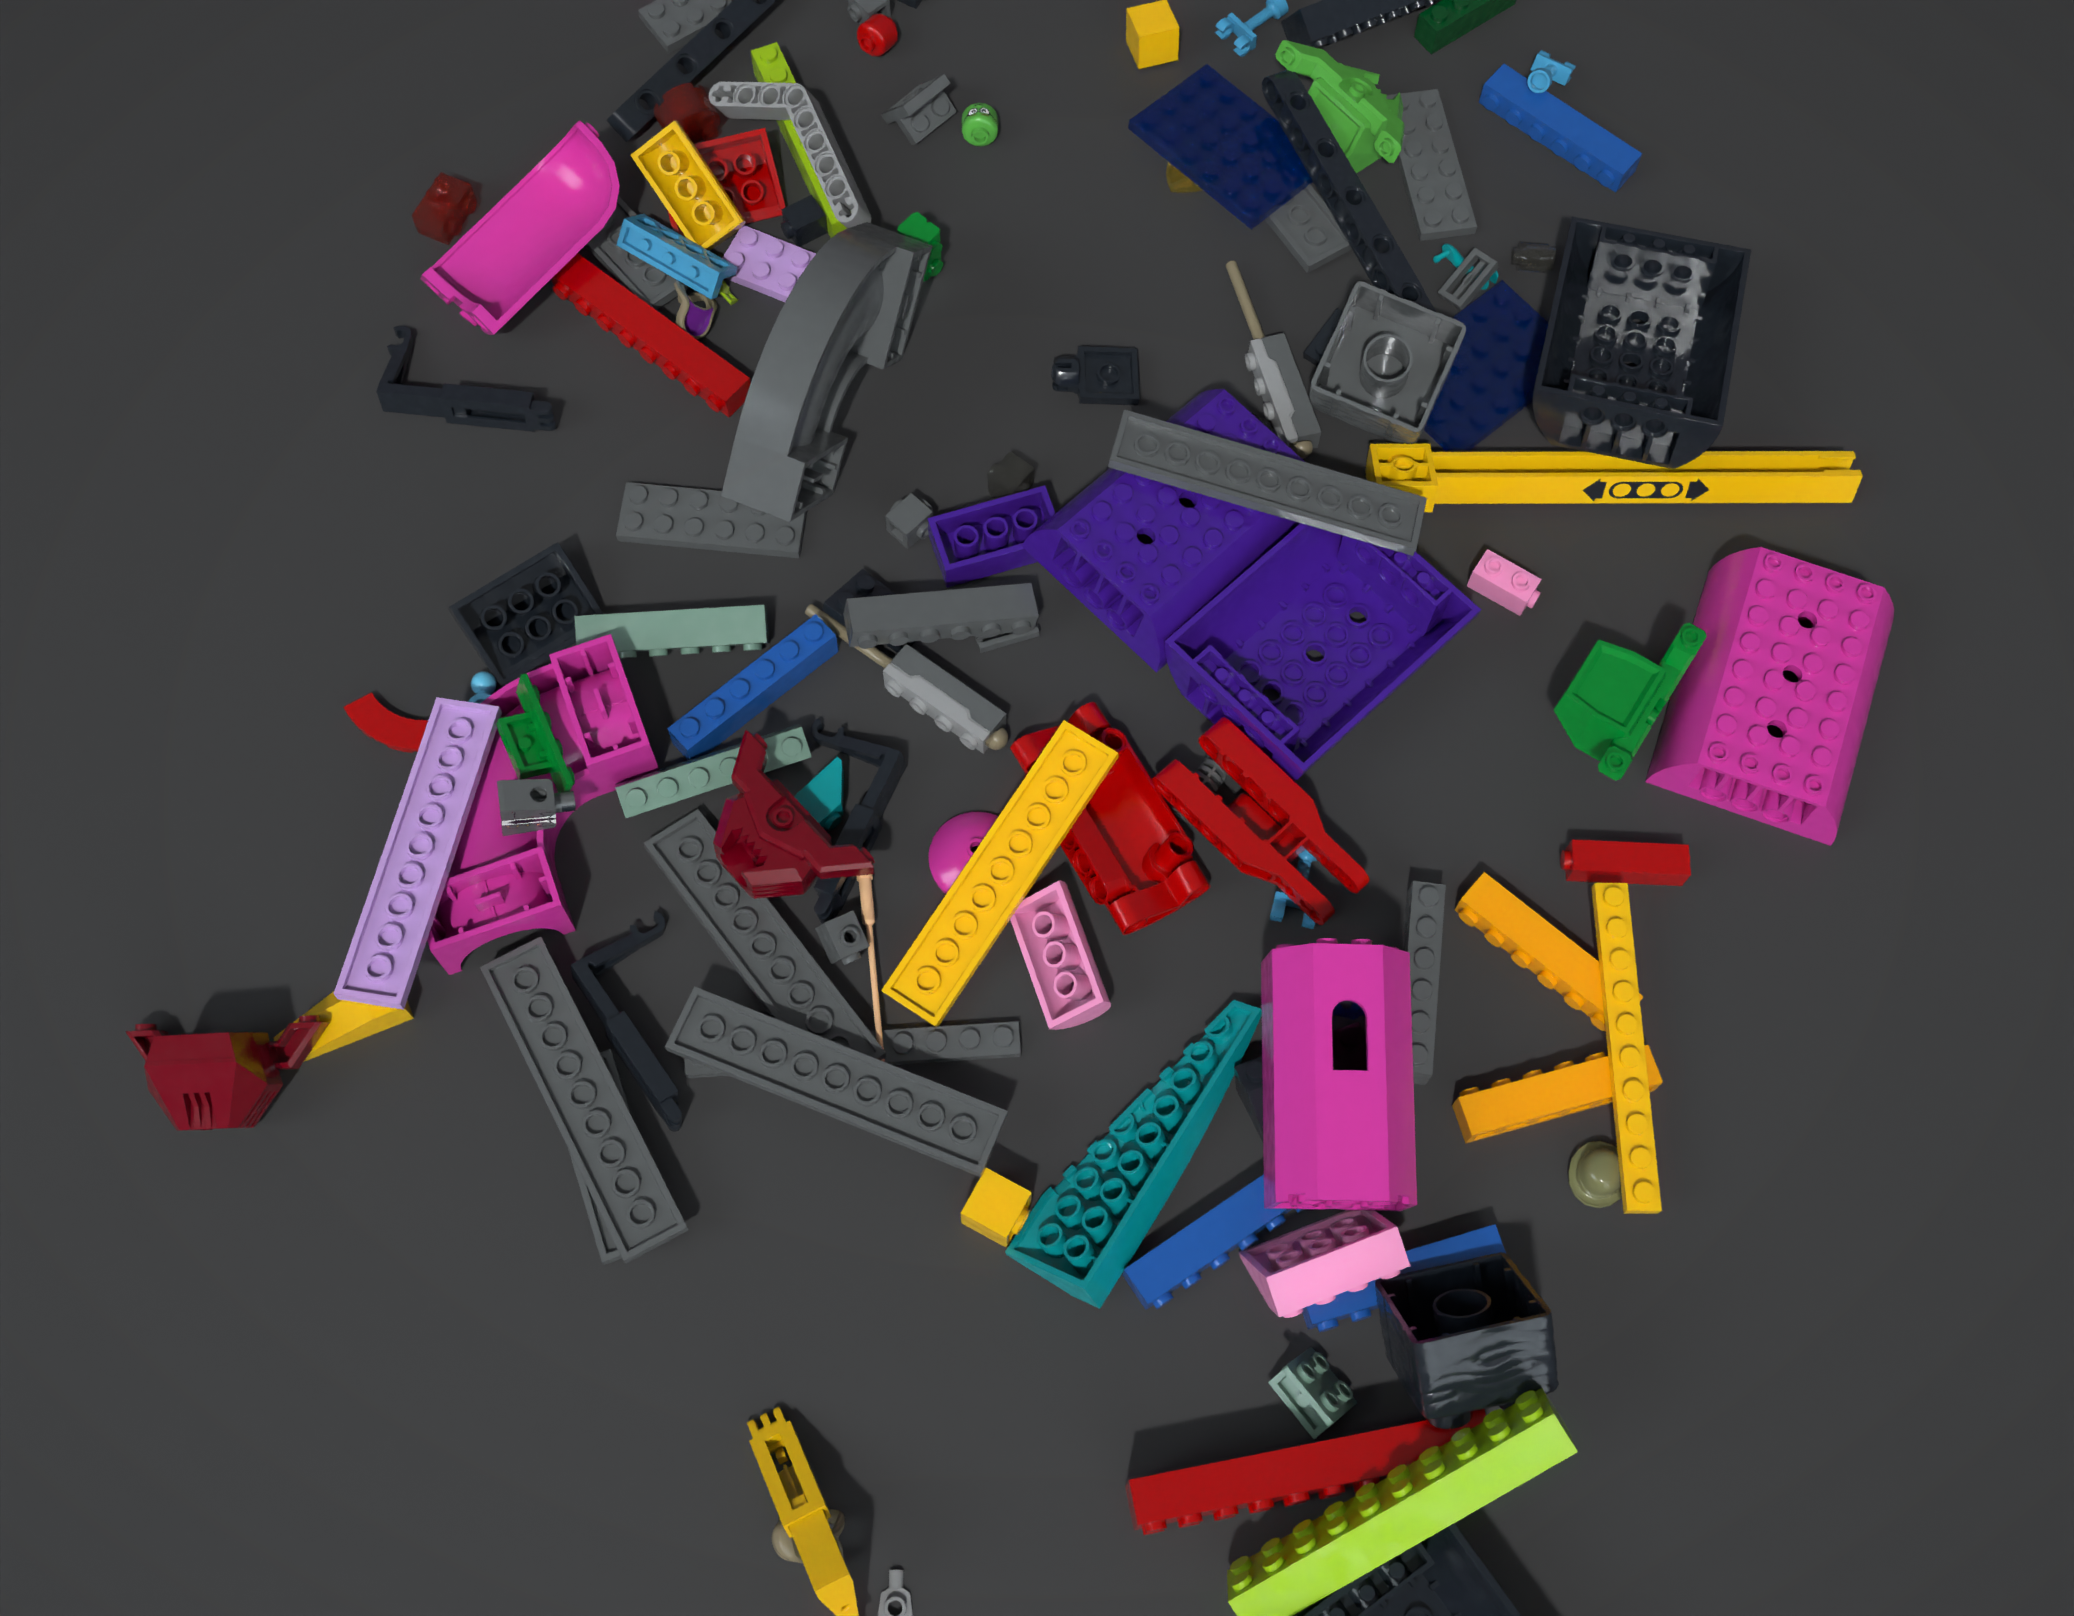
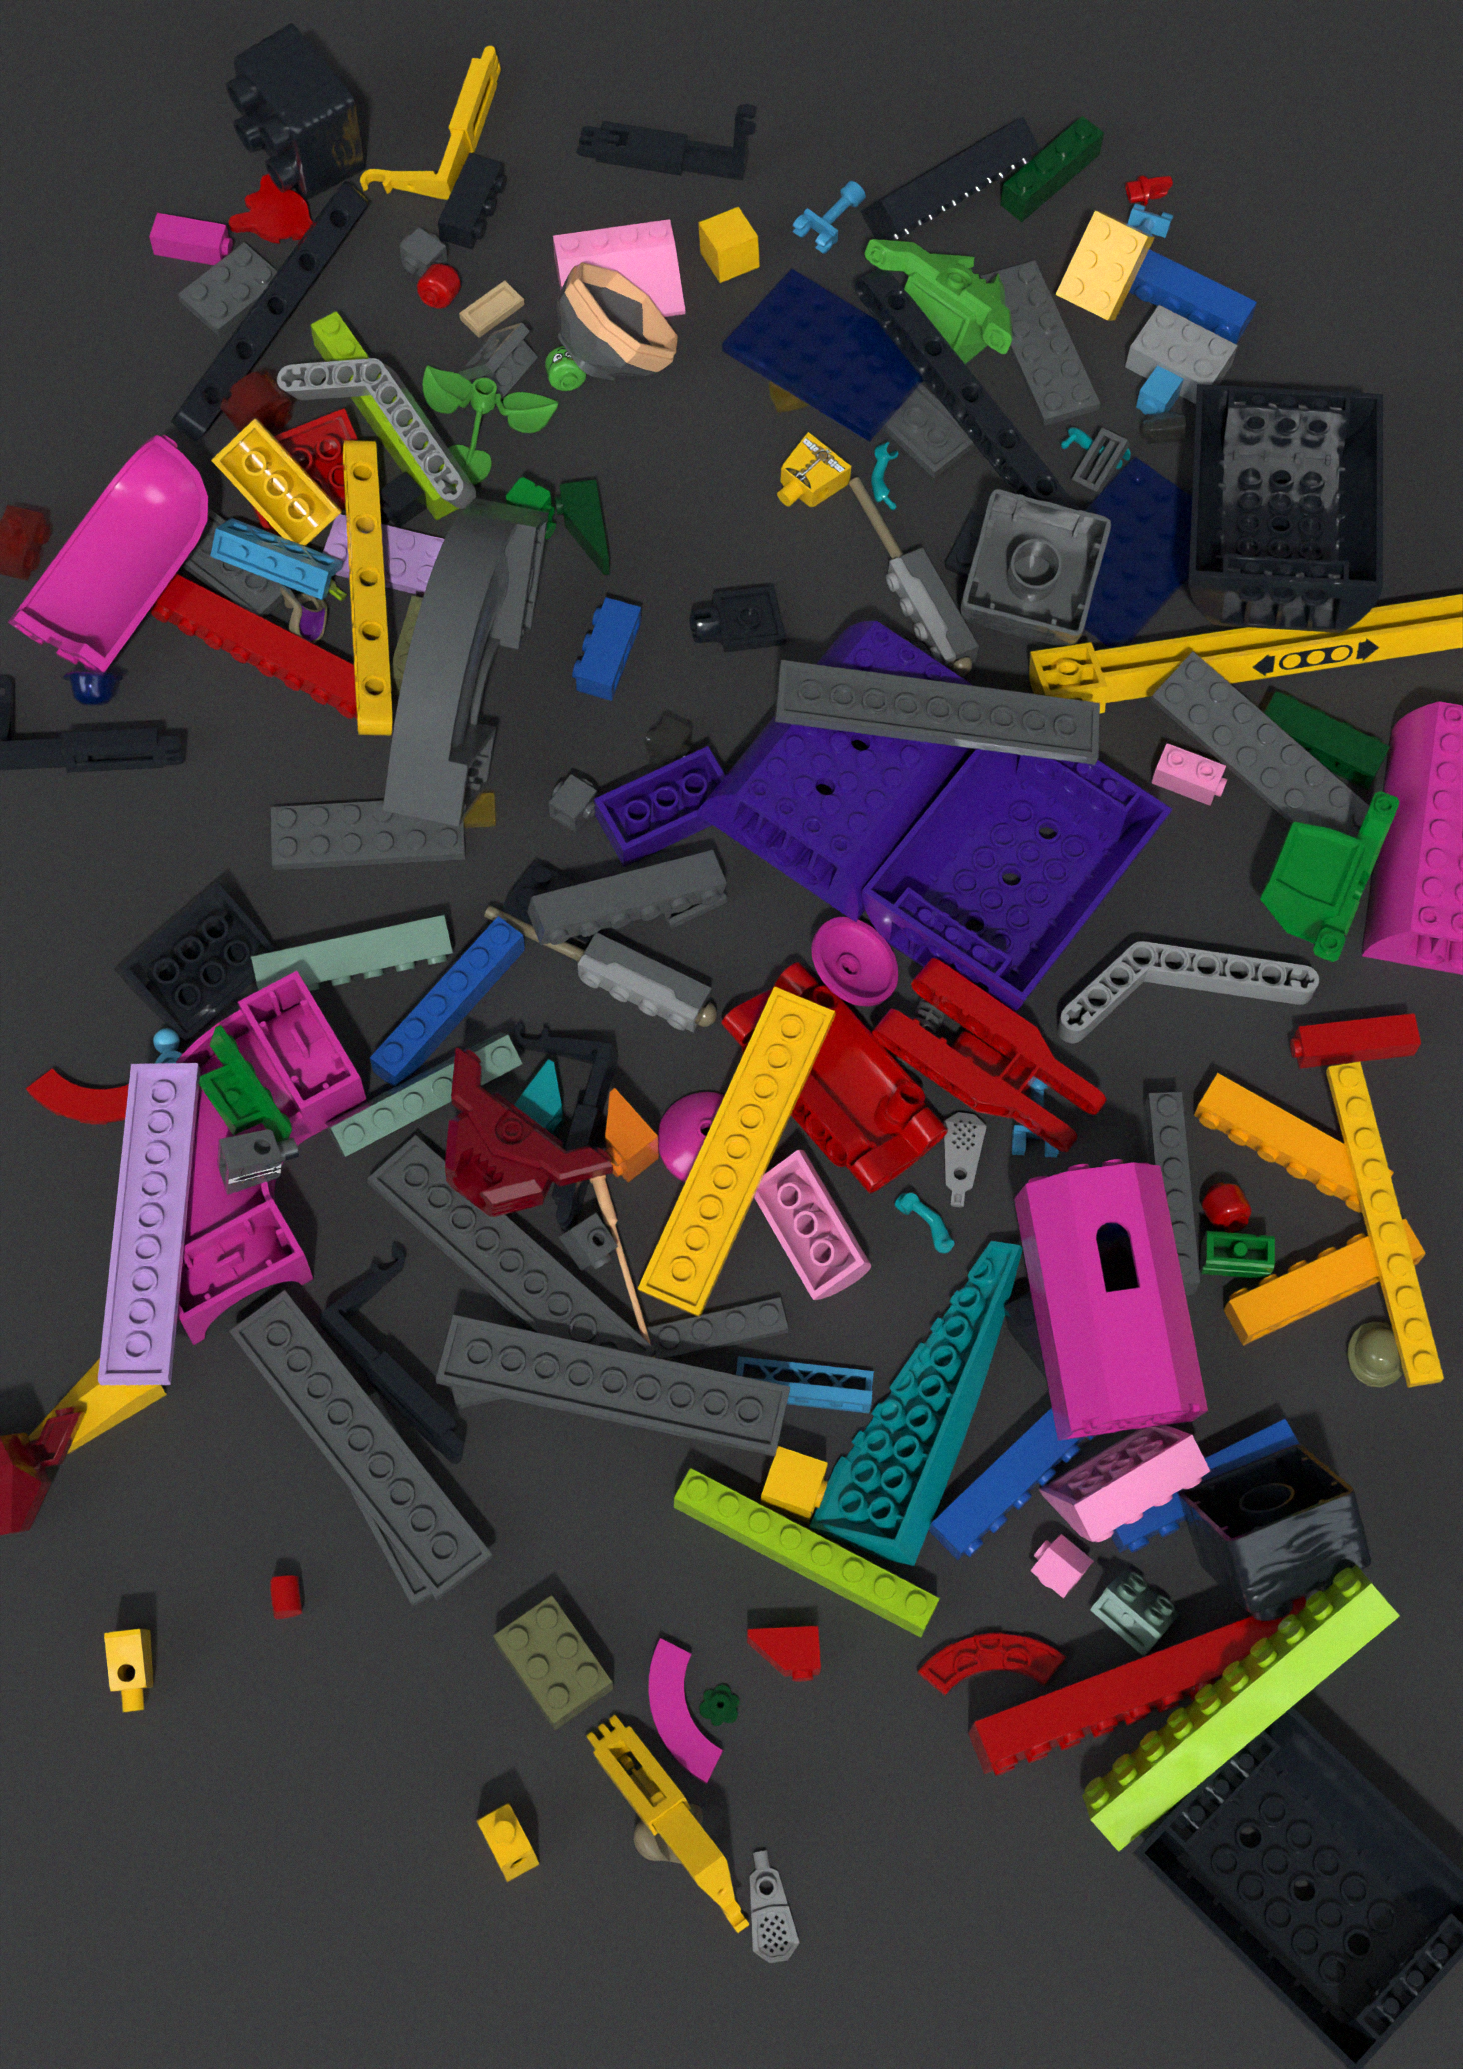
camera: 10 degrees left, 0 degrees up
(321, 1264) = (126, 1650): none -> yellow torso
(482, 1234) = (285, 1596): none -> red brick
(483, 347) = (93, 688): none -> clear blue hat
(646, 1516) = (507, 1841): none -> yellow torso
(727, 1344) = (553, 1662): none -> olive brick
(755, 276) = (367, 602): none -> yellow beam
(822, 516) = (482, 813): none -> clear yellow tile
(835, 1417) = (671, 1714): none -> dark pink tile
(867, 129) = (448, 390): none -> bright green plant
(891, 1423) = (727, 1713): none -> dark green plant
(898, 846) = (628, 1139): none -> orange slope
(923, 63) = (491, 309): none -> tan tile
(962, 1372) = (789, 1650): none -> red slope
(969, 262) = (583, 519): none -> dark green slope
(969, 383) = (607, 648): none -> blue brick
(996, 1277) = (805, 1552): none -> lime brick
(1028, 88) = (612, 325): none -> rock
(1033, 1123) = (815, 1395): none -> dark azure fence
(1045, 48) = (637, 251): none -> bright pink slope
(1148, 710) = (854, 961): none -> dark pink dish
(1161, 1409) = (991, 1653): none -> red tile
(1185, 987) = (942, 1241): none -> teal piece
(1192, 251) = (812, 473): none -> yellow torso
(1220, 915) = (960, 1158): none -> light grey piece
(1246, 1333) = (1060, 1565): none -> bright pink brick
(1253, 270) = (877, 480): none -> teal piece
(1470, 775) = (1187, 977): none -> light grey beam
(1471, 1005) = (1226, 1207): none -> red head
(1474, 1053) = (1237, 1255): none -> green brick
(1502, 99) = (1104, 265): none -> yellow brick
(1535, 223) = (1159, 391): none -> dark azure brick
(1555, 39) = (1147, 189): none -> red piece
(1557, 188) = (1181, 349): none -> light grey brick
(1574, 566) = (1257, 749): none -> dark grey plate
(1639, 569) = (1328, 740): none -> dark green brick

